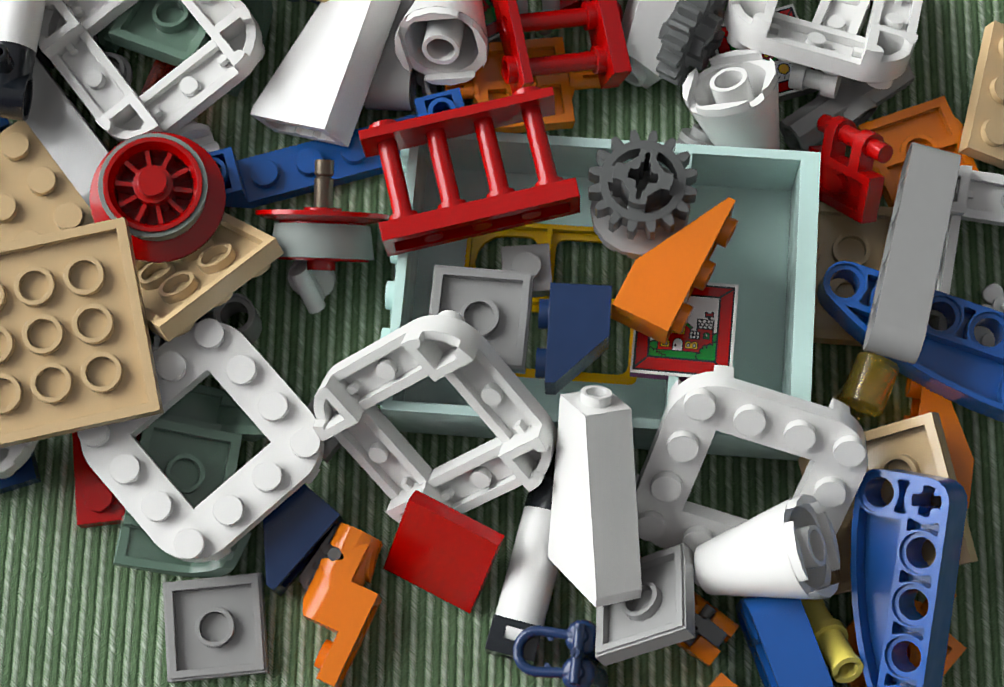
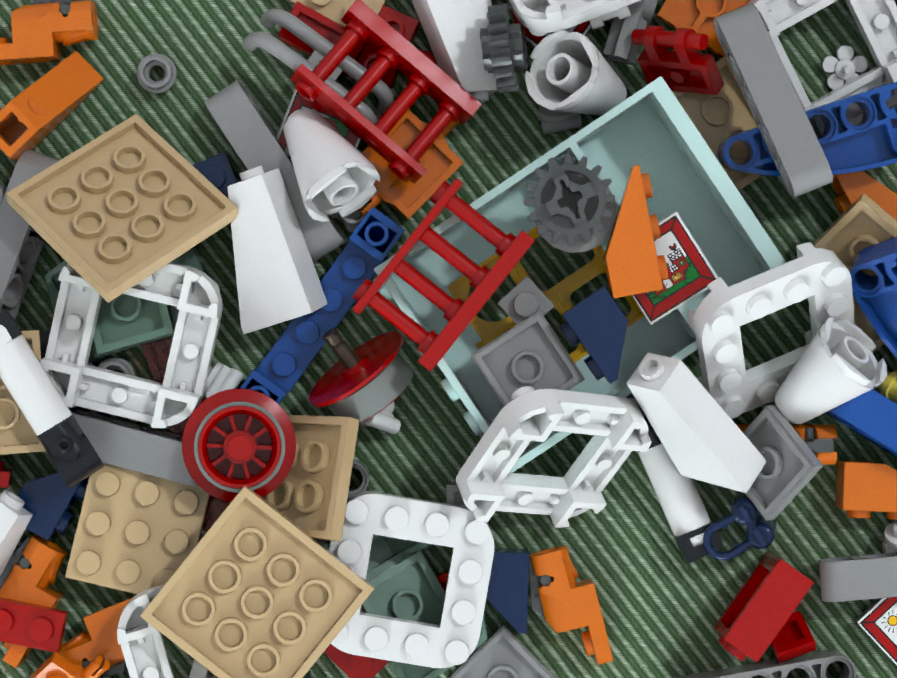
camera: 40 degrees left, 15 degrees up
(443, 551) = (612, 523): red tile -> none
(868, 385) = (801, 209): clear yellow piece -> none

